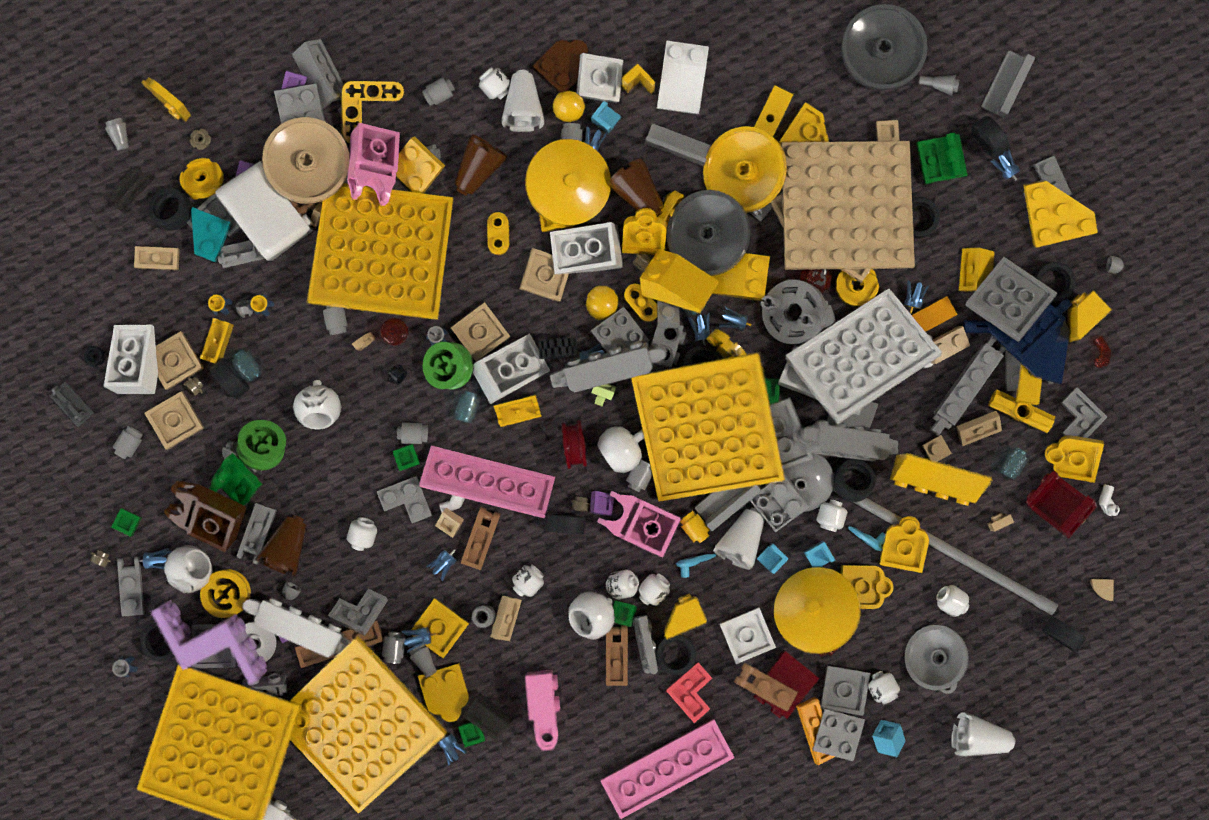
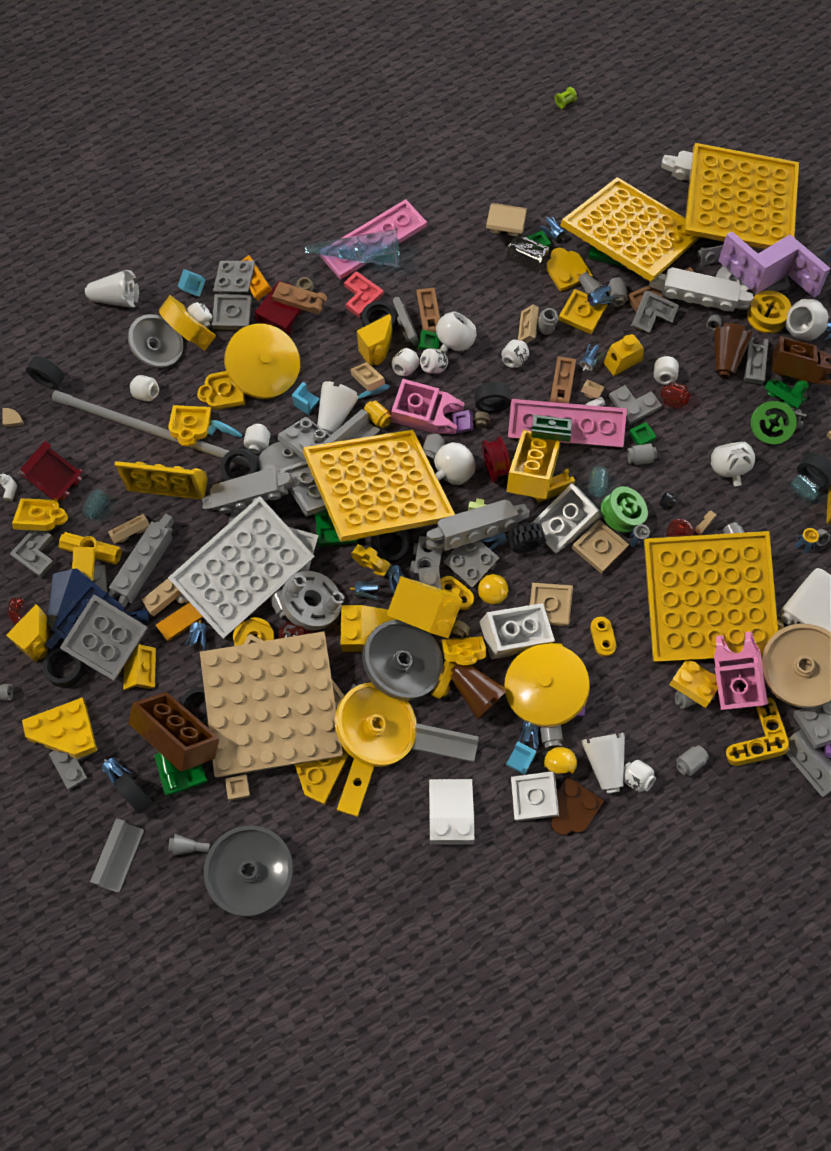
camera: 175 degrees right, 20 degrees down
(358, 500) = (675, 395): none -> clear red head
(406, 558) = (626, 353): none -> yellow torso
(477, 164) = (636, 695): reddish brown cone -> none
(505, 764) = (506, 218): none -> tan slope
(507, 470) = (551, 428): none -> dark green plate
(535, 427) = (533, 466): none -> yellow brick
(543, 705) = (484, 264): bright pink brick -> none
(635, 76) = (496, 801): yellow panel -> none
(669, 749) = (374, 247): none -> clear light blue wedge
(699, 575) = (367, 376): none -> tan plate
(747, 635) = (320, 340): white plate -> none
(756, 714) = (305, 283): none -> dark tan plate
(819, 555) = (265, 409): medium azure panel -> none
(906, 675) = (181, 321): none -> yellow arch
(936, 449) = (168, 506): tan plate -> none
(946, 186) = (173, 731): none -> reddish brown brick
(1000, 521) = (105, 454): tan plate -> none

